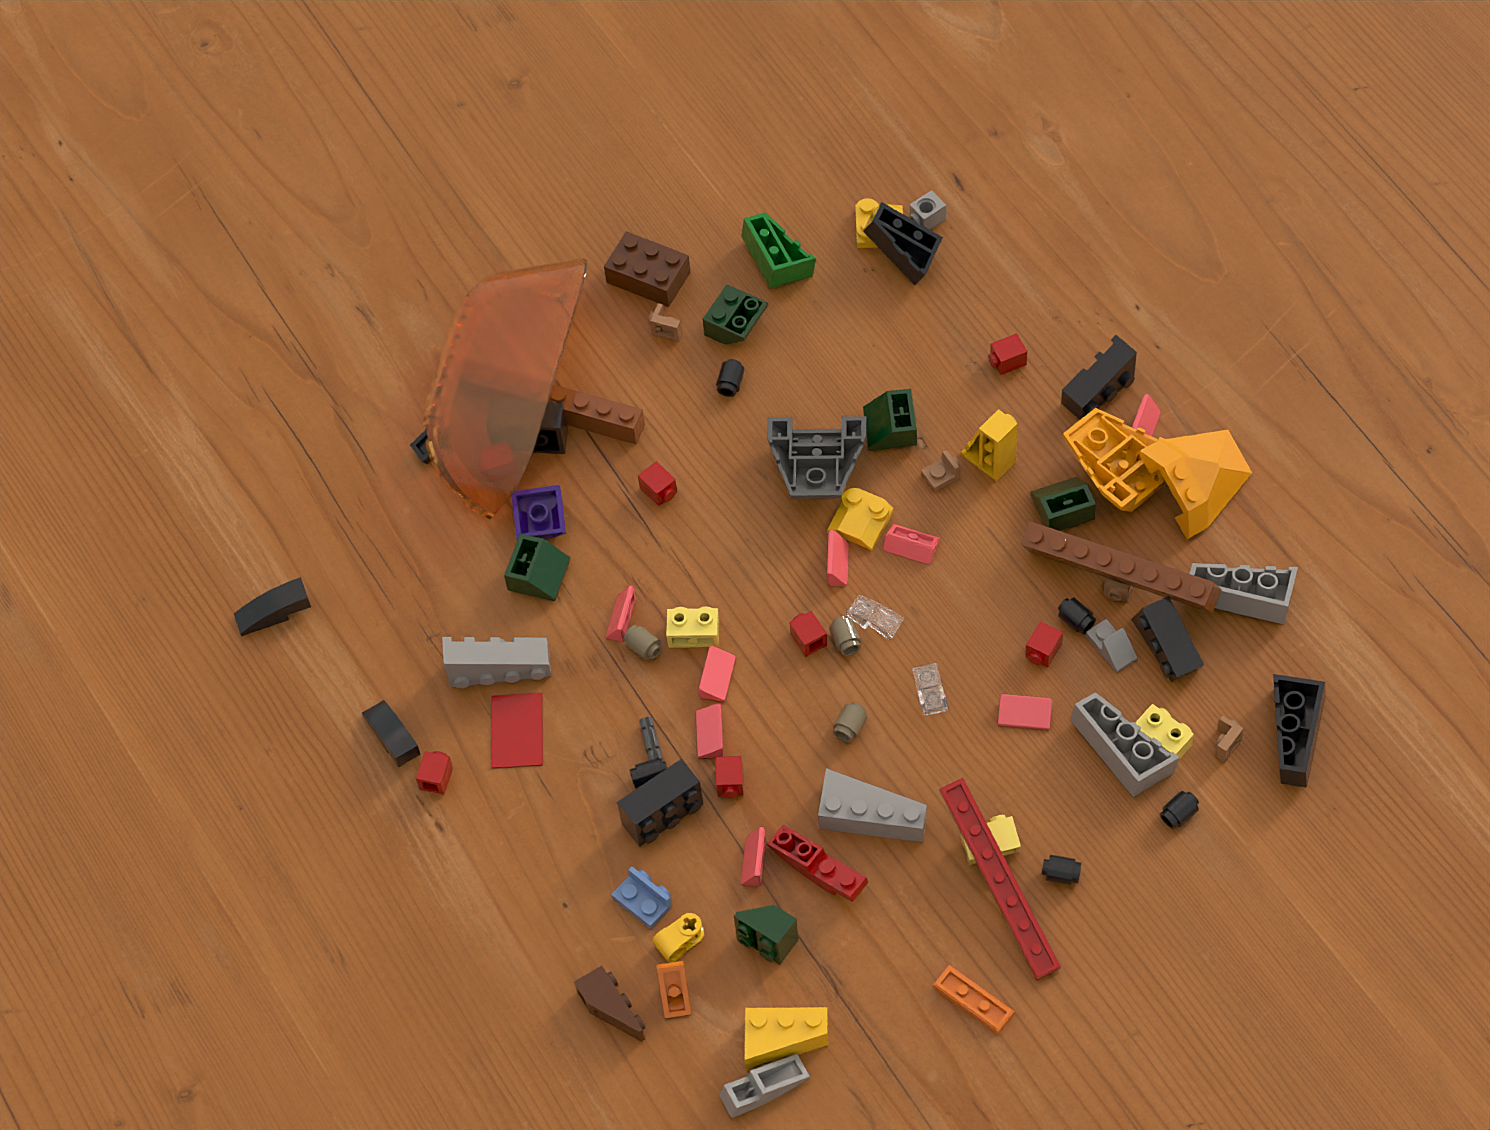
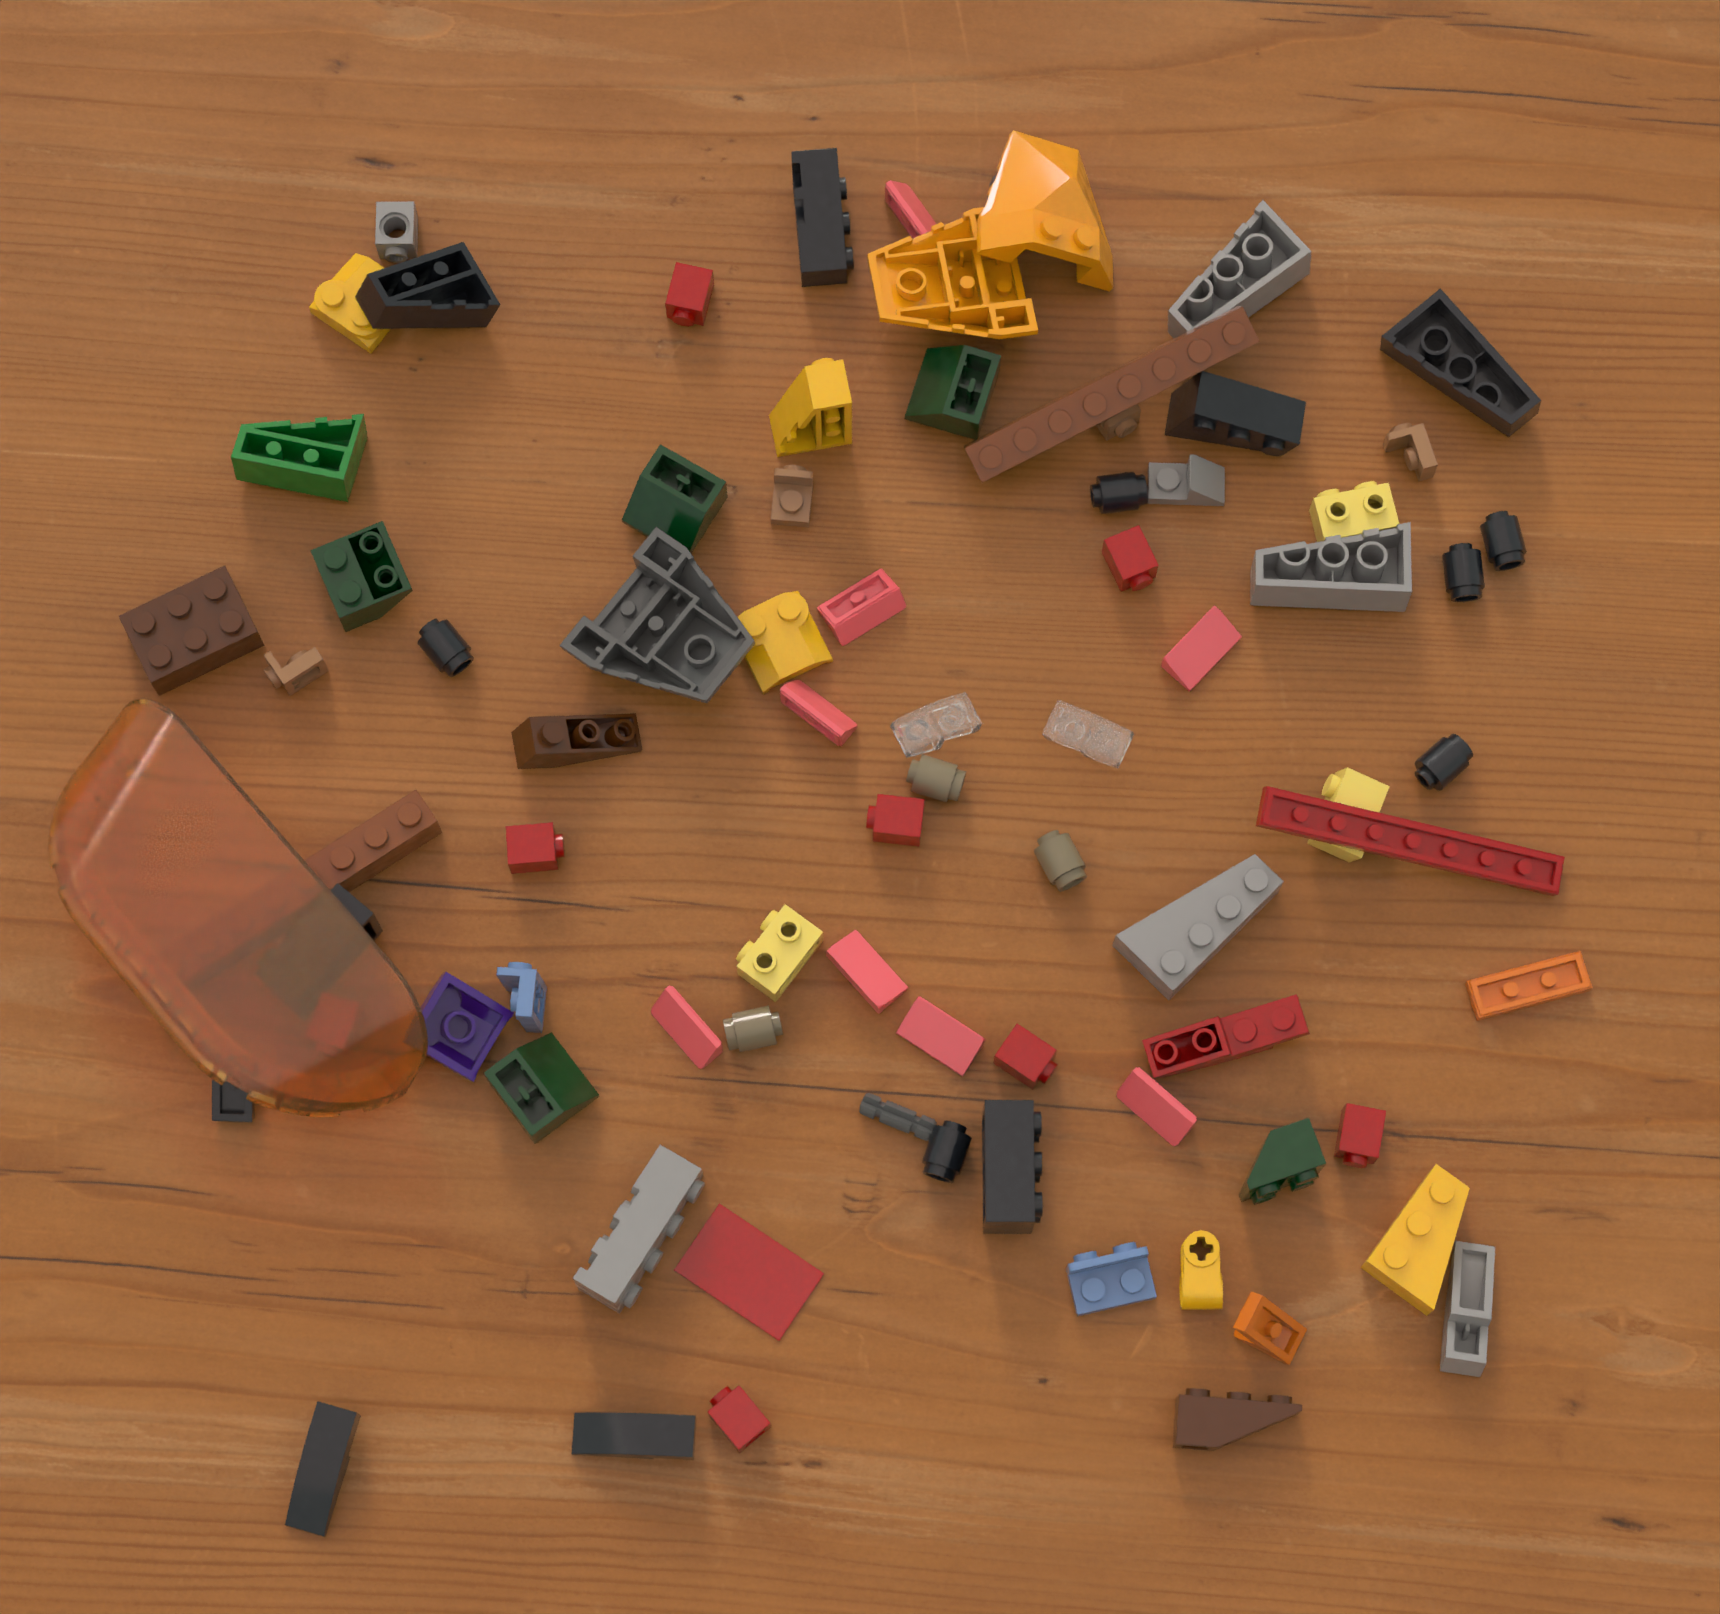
camera: 60 degrees left, 15 degrees up
(576, 529) = (527, 994): none -> medium blue bracket
(730, 464) = (574, 739): none -> reddish brown slope
(817, 966) = (1359, 1135): none -> red brick
(1215, 817) = (1503, 541): none -> black brick

